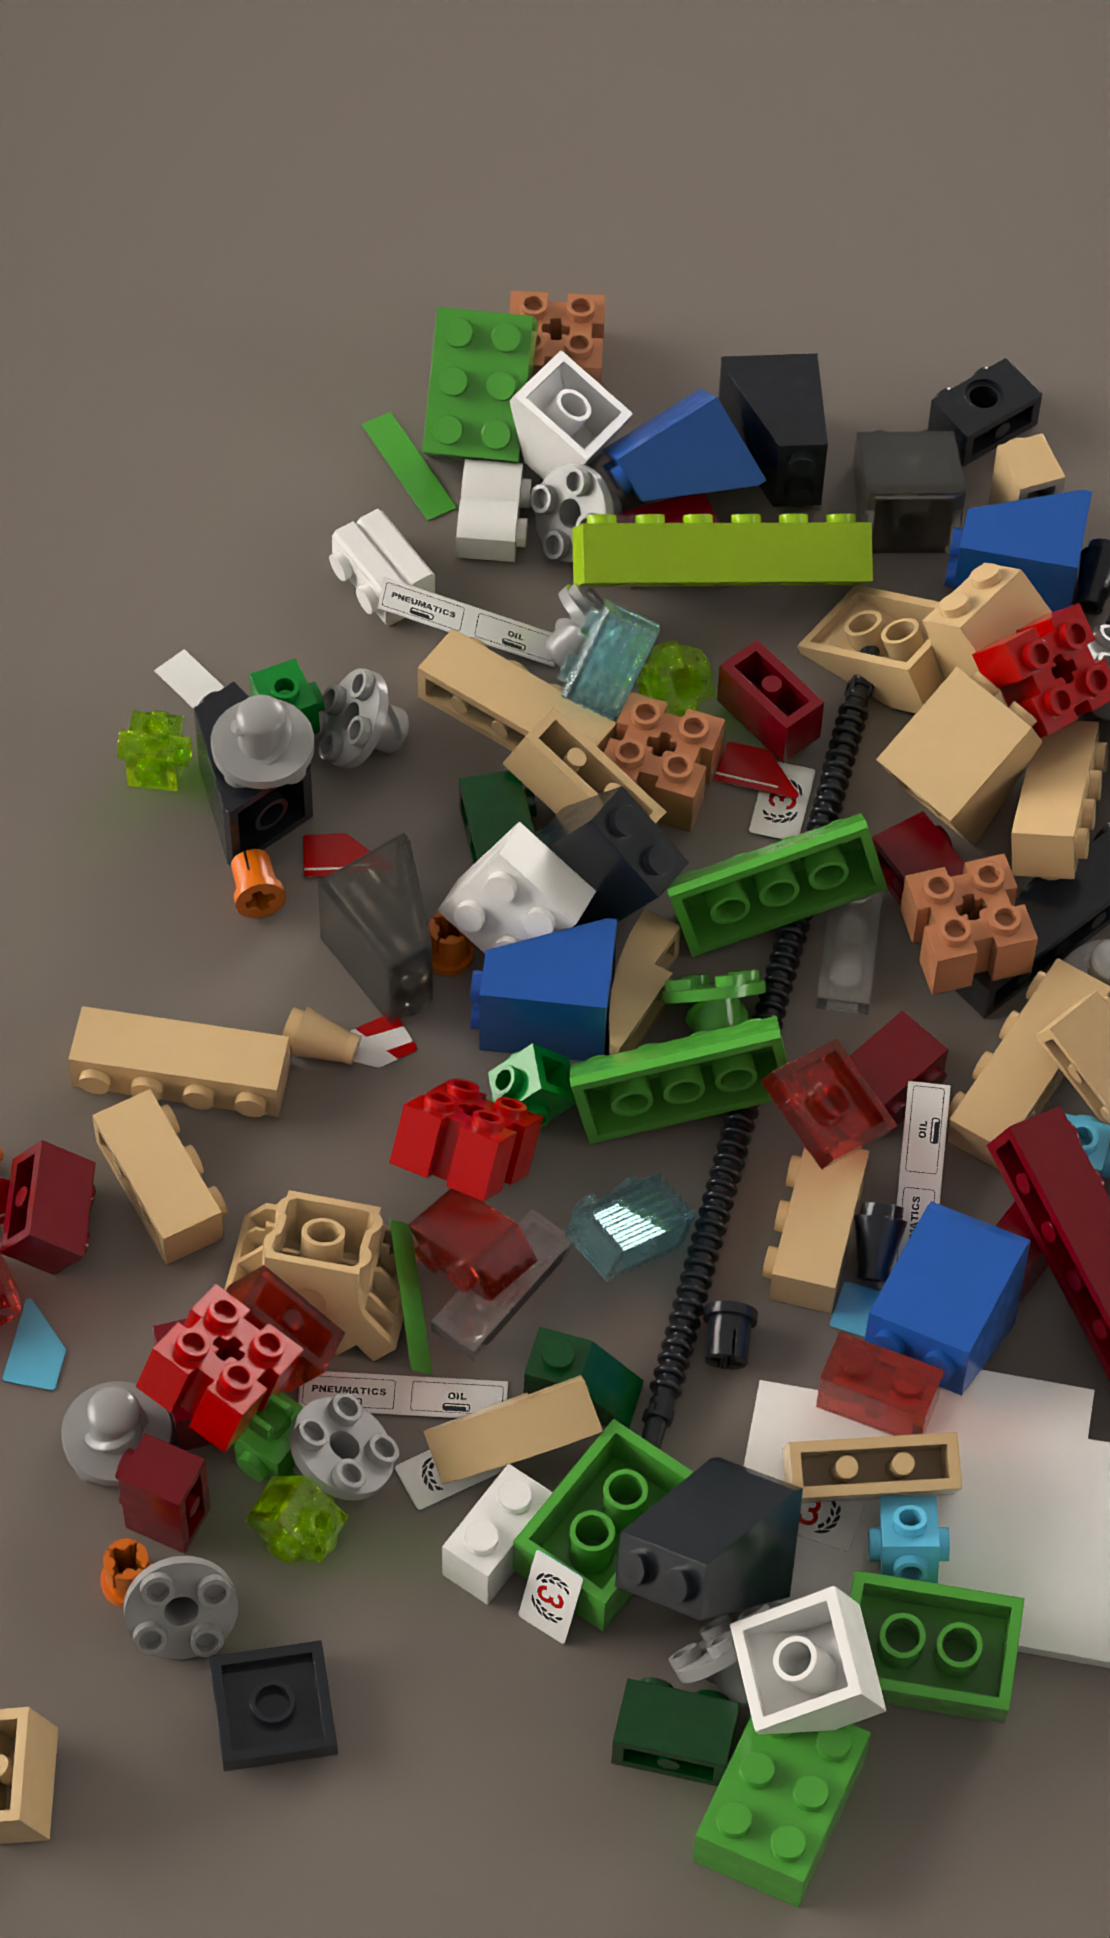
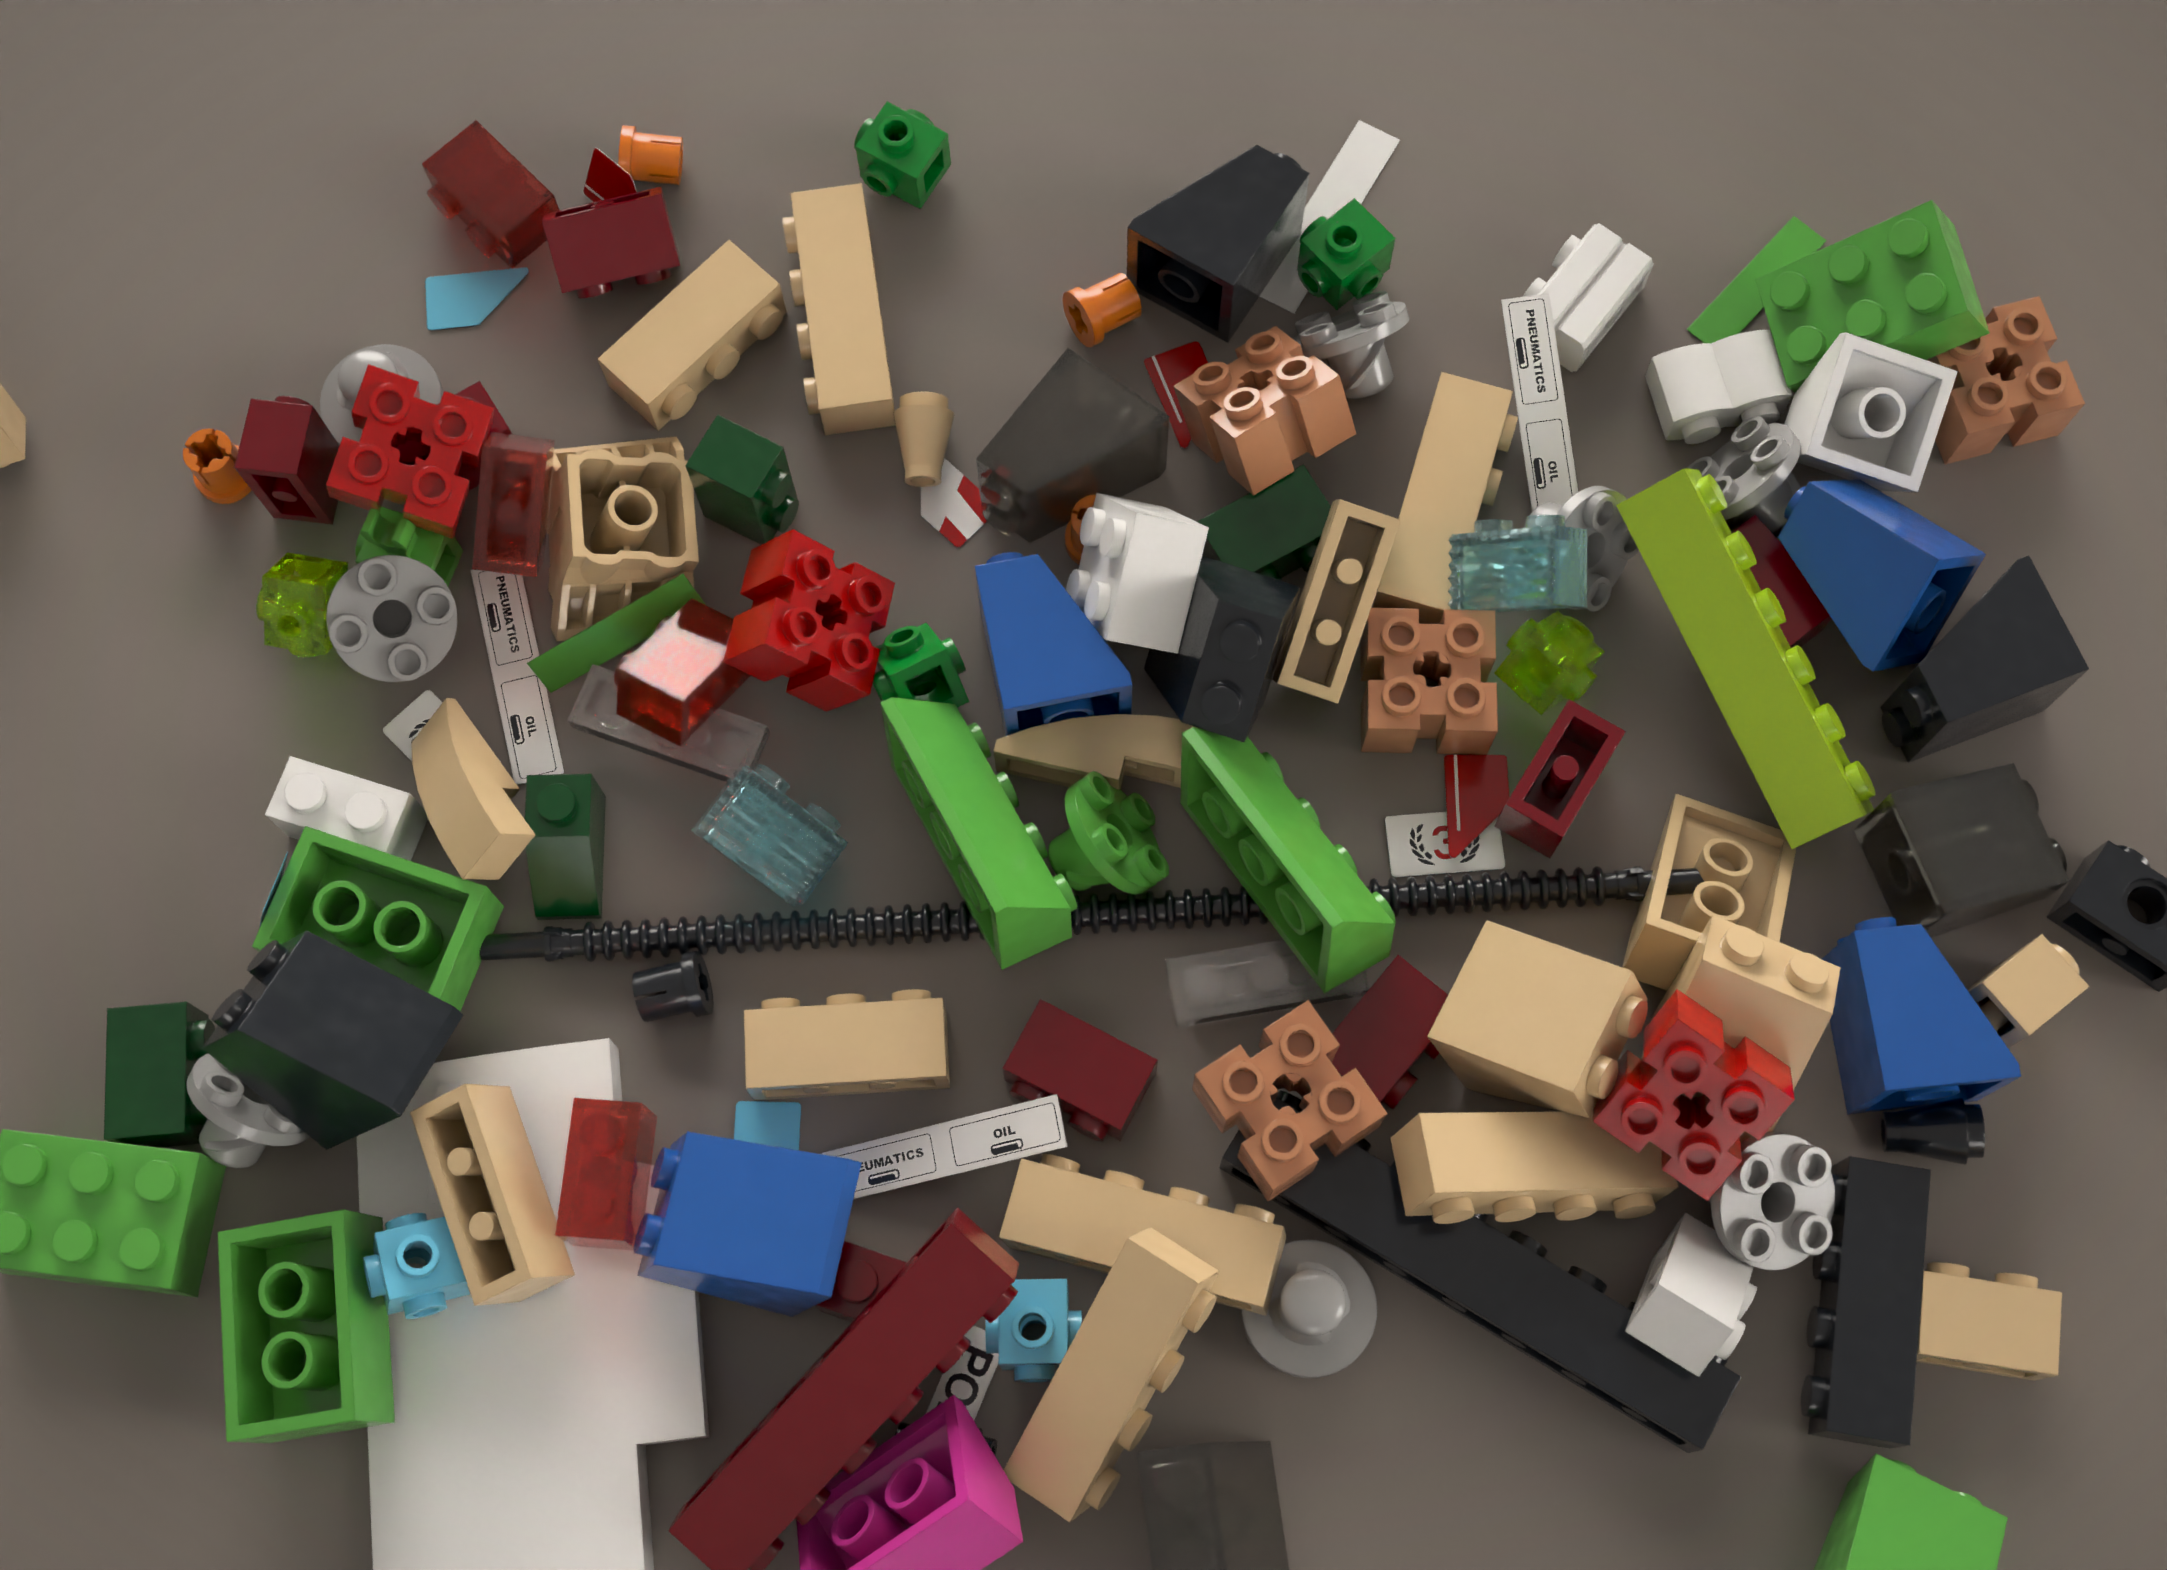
camera: 75 degrees right, 15 degrees up
(60, 977) = (902, 154): none -> green brick
(154, 750) = (1228, 131): clear neon green brick -> none
(180, 1608) = (179, 521): light grey plate -> none
(262, 743) = (1224, 225): light grey plate -> none
(273, 1705) = (100, 655): black plate -> none
(321, 1153) = (743, 481): none -> dark green brick
(403, 785) = (1265, 409): none -> nougat brick
(808, 1665) = (191, 1192): white slope -> none
(828, 1103) = (968, 1005): clear red plate -> none
(878, 1237) = (848, 1122): black cone -> none

